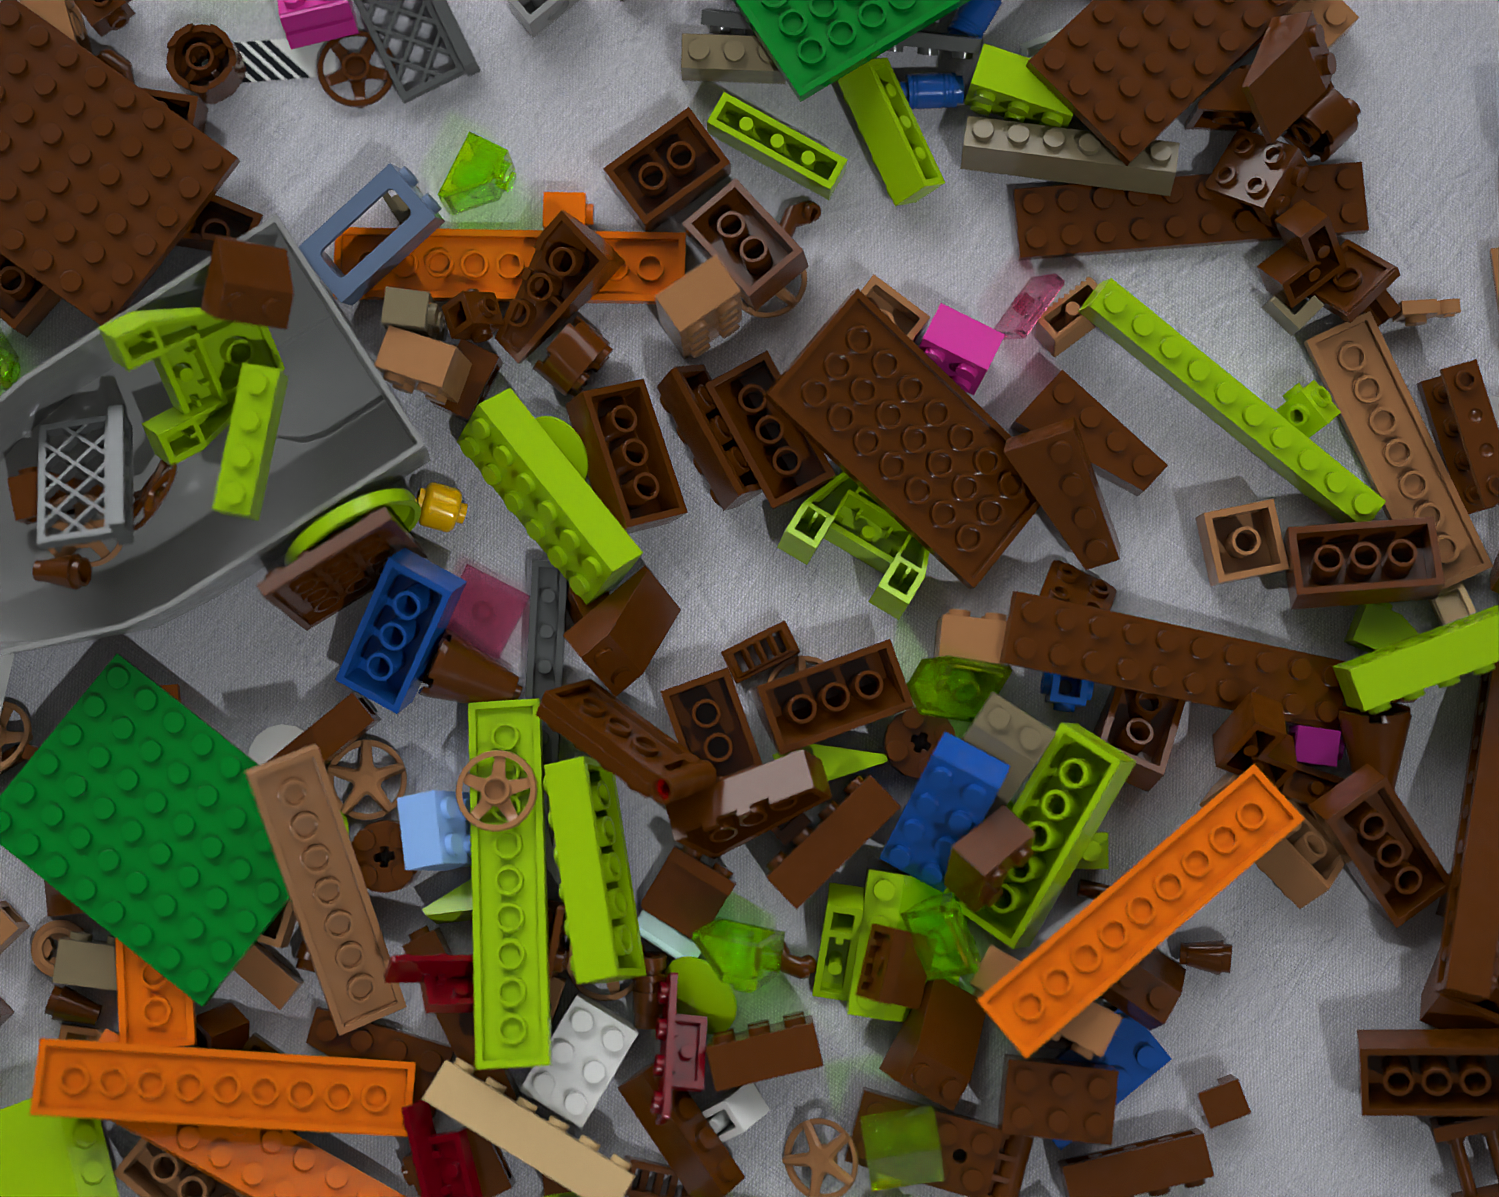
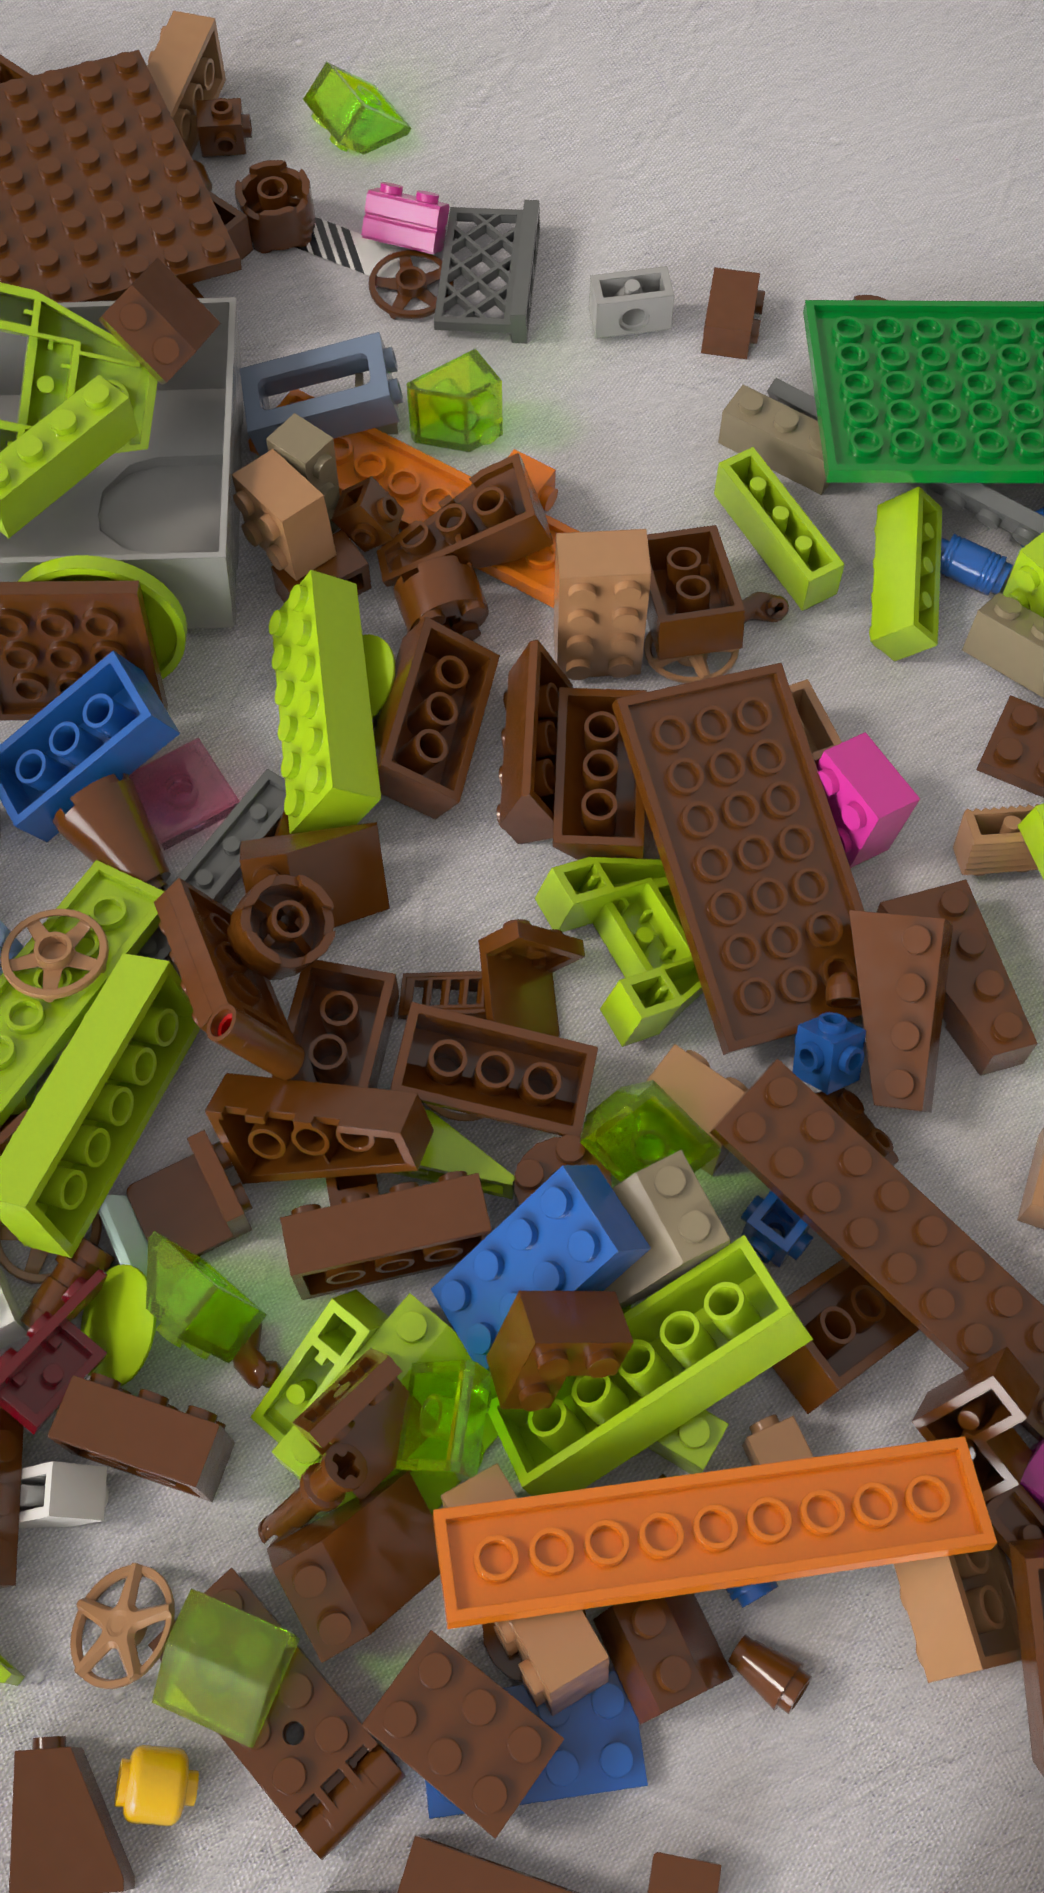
camera: 30 degrees right, 20 degrees down
(441, 506) = (210, 671): yellow head -> none
(648, 671) = (260, 940): none -> reddish brown brick
(667, 170) = (651, 488): reddish brown brick -> none
(808, 617) = (519, 974): none -> reddish brown bracket
(895, 1021) = (320, 1489): none -> reddish brown pin
(1022, 500) = (842, 990): none -> reddish brown hinge
(1029, 306) = (959, 798): clear pink plate -> none
(1037, 550) = (829, 1052): none -> blue brick
(1144, 826) = (775, 1441): none -> medium nougat brick

